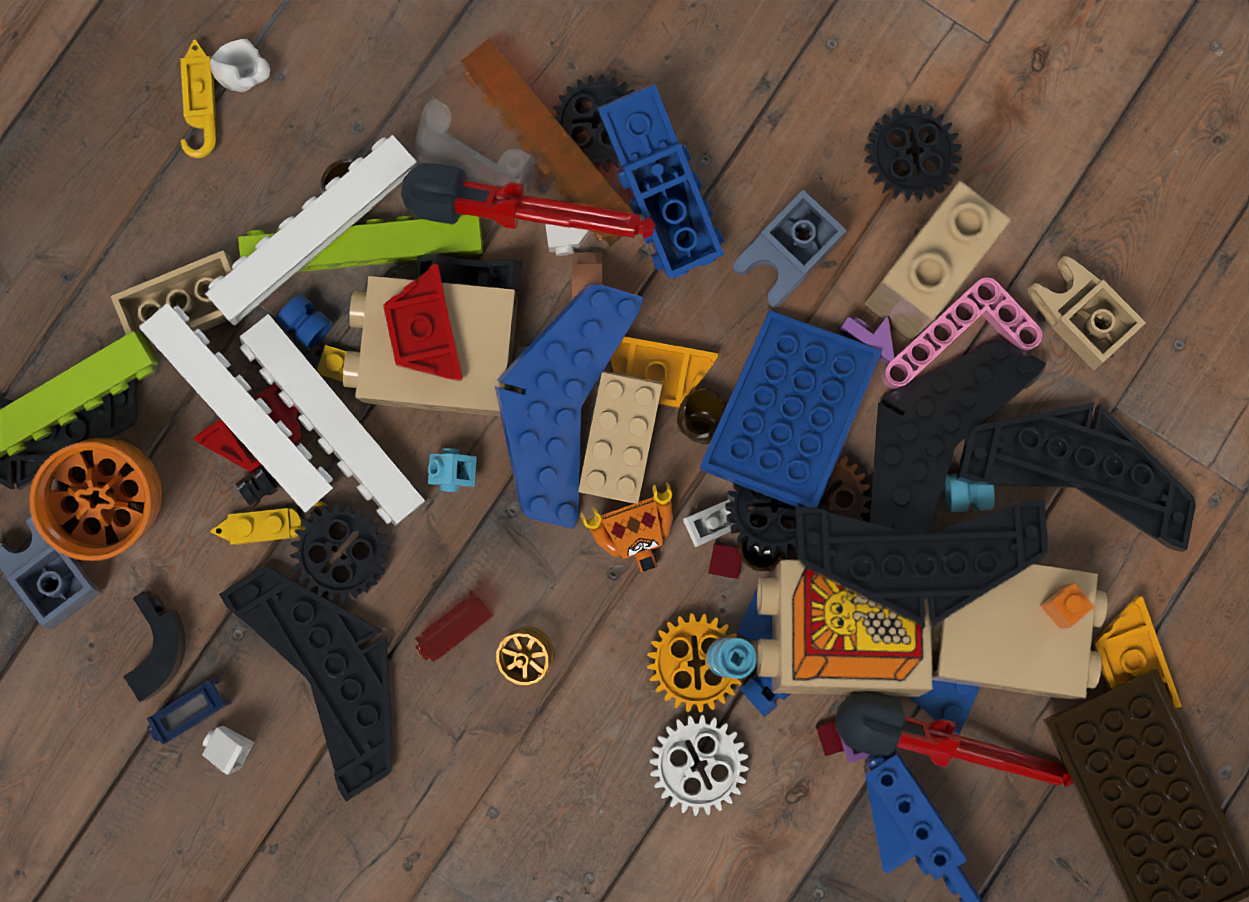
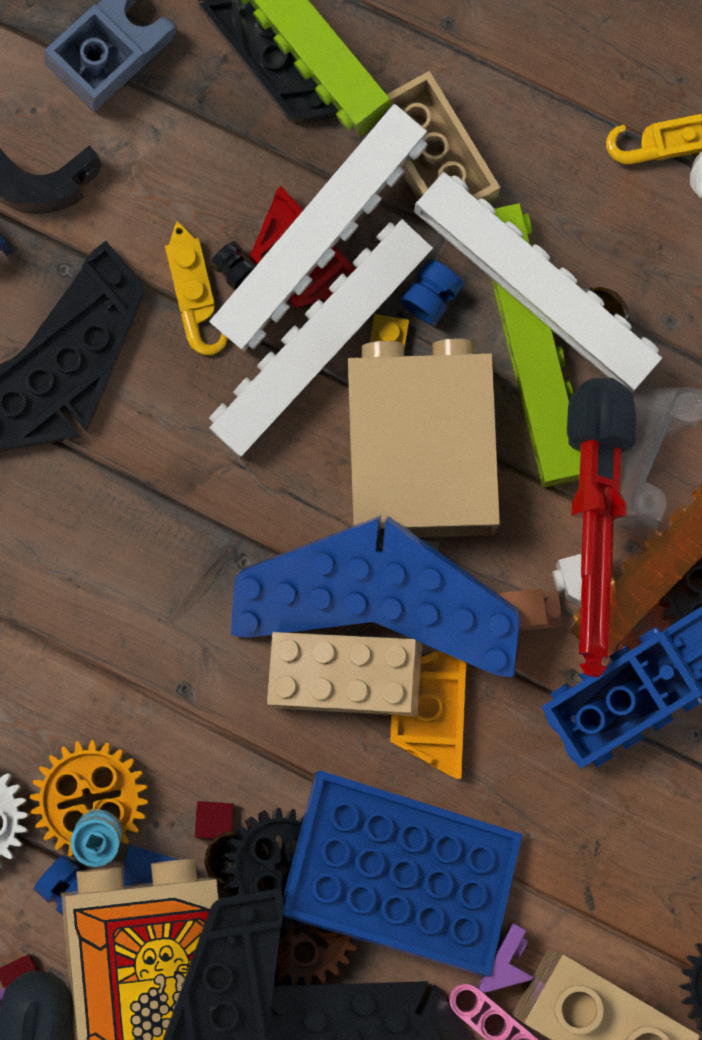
camera: 80 degrees right, 5 degrees down
(49, 506) = (175, 40): orange wheel -> none
(319, 533) = (188, 343): black gear -> none
(422, 328) = (437, 423): red wing -> none
(451, 470) = (280, 483): medium azure brick -> none
(453, 628) = (98, 510): clear red window -> none
(493, 274) = (514, 471): black arch -> none
(525, 655) = (74, 597): pearl gold wheel -> none
(634, 528) = (238, 705): orange torso -> none
(700, 415) = (383, 765): dark brown hair -> none
(708, 524) = (253, 791): white slope -> none
(788, 255) = (588, 852): sand blue brick -> none

